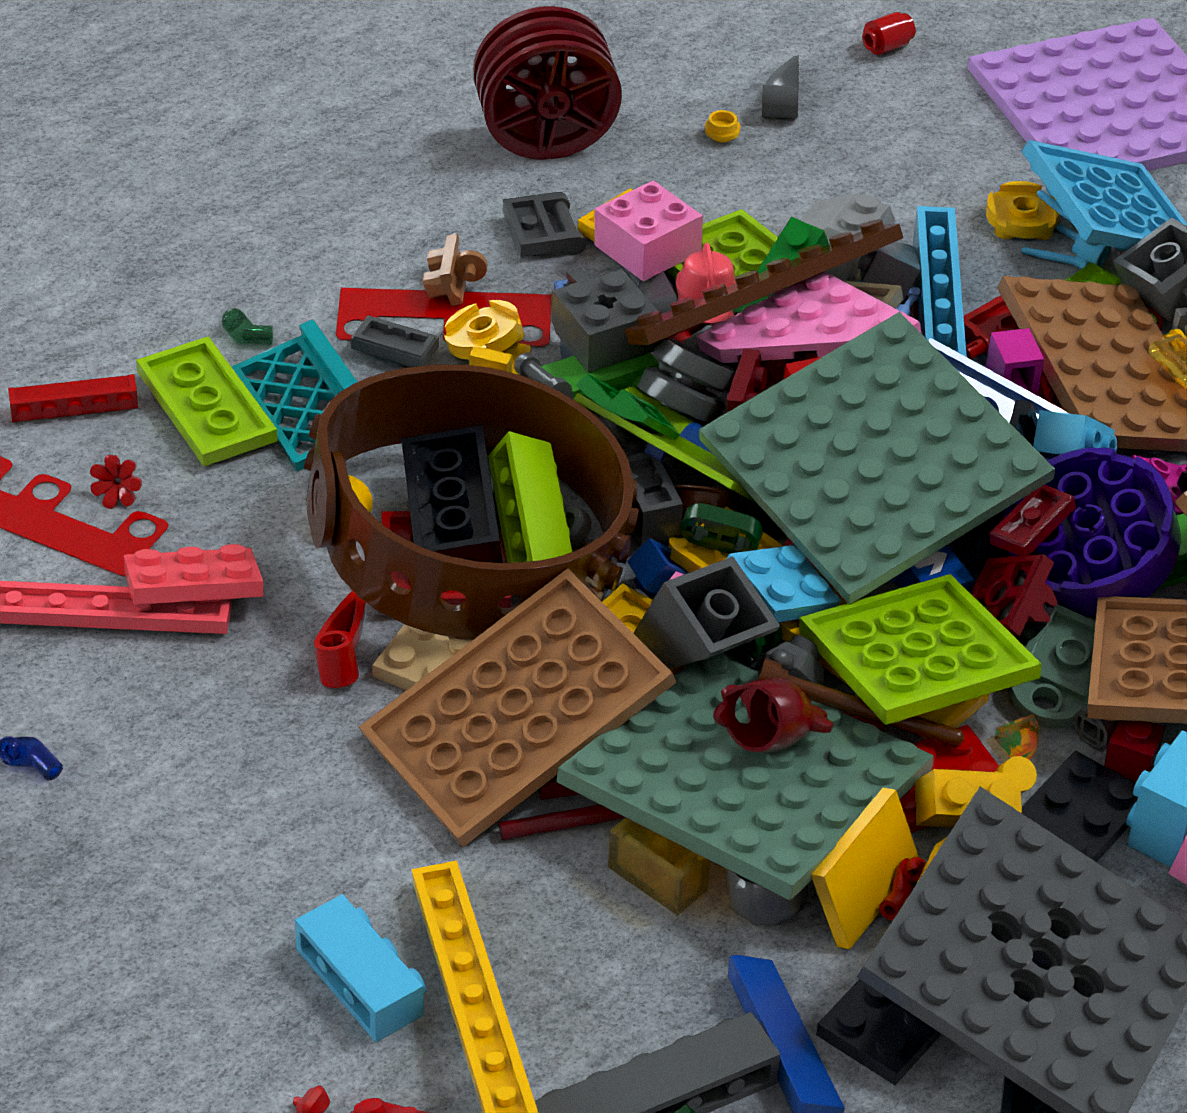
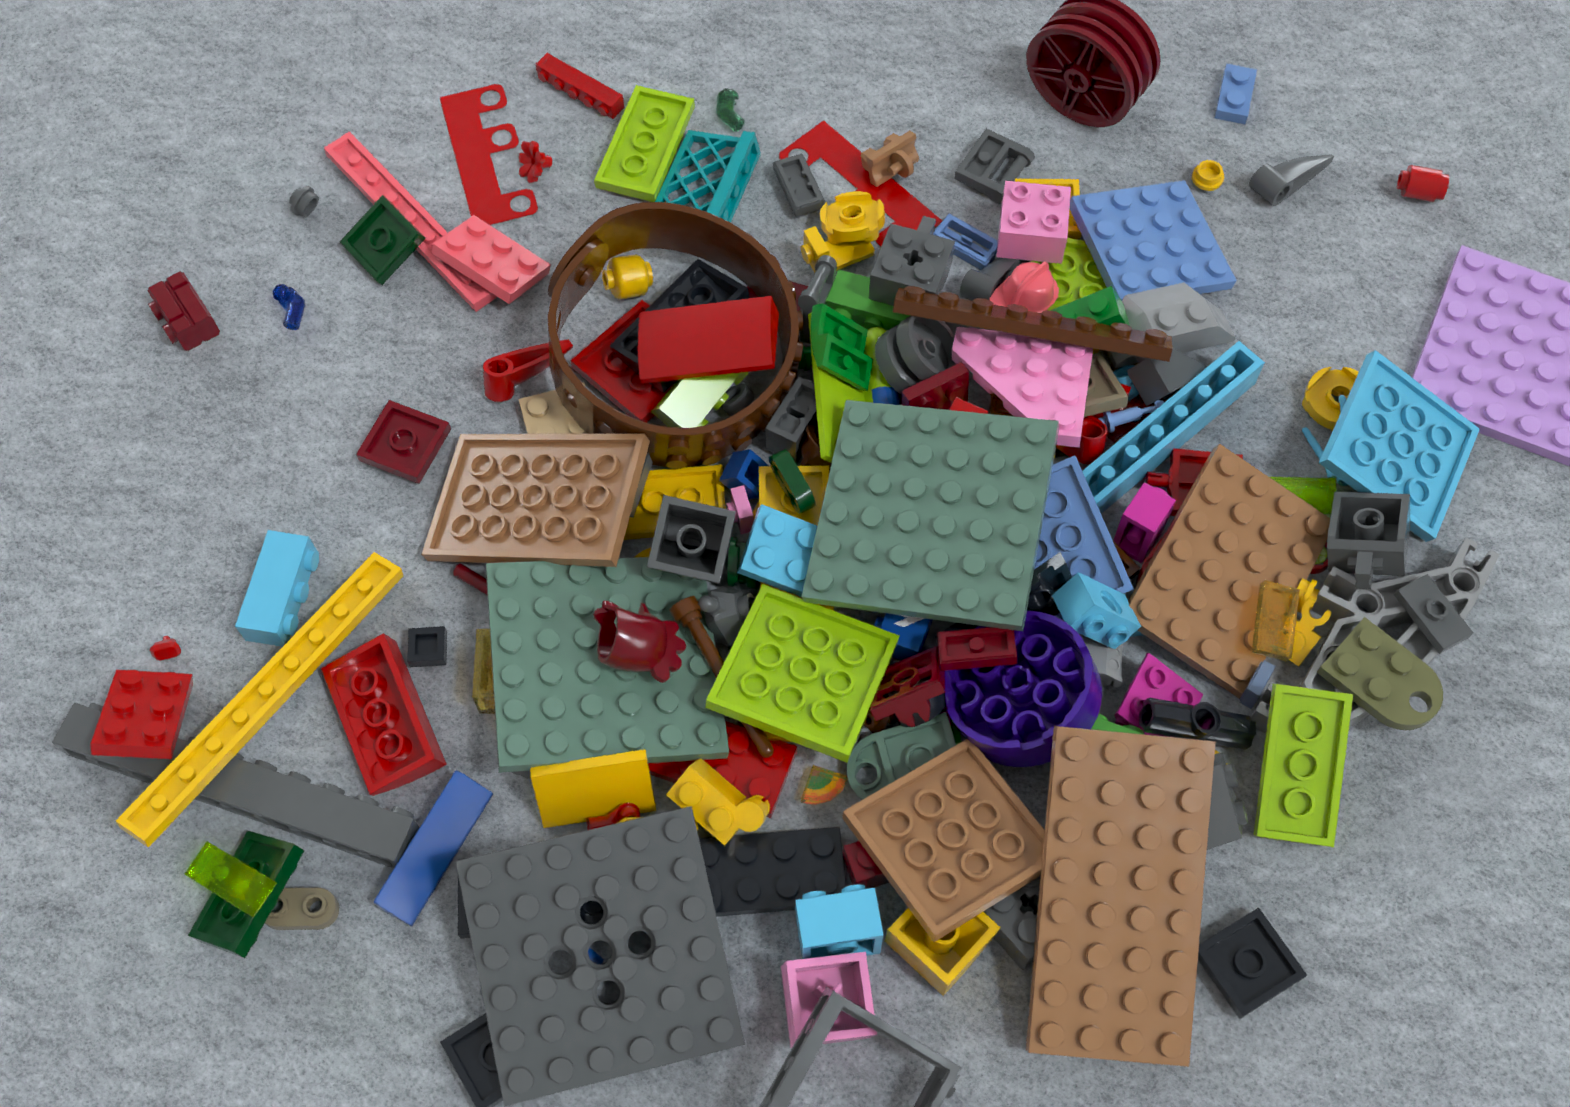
camera: 50 degrees right, 20 degrees up
(55, 636) = (382, 240): none -> dark green tile
(310, 773) = (403, 441): none -> dark red plate
(517, 472) = (707, 339): none -> red slope
(563, 901) = (427, 646): none -> black plate
(598, 979) = (383, 715): none -> red slope
(663, 60) = (1235, 94): none -> medium blue plate
(747, 192) = (1151, 239): none -> medium blue plate

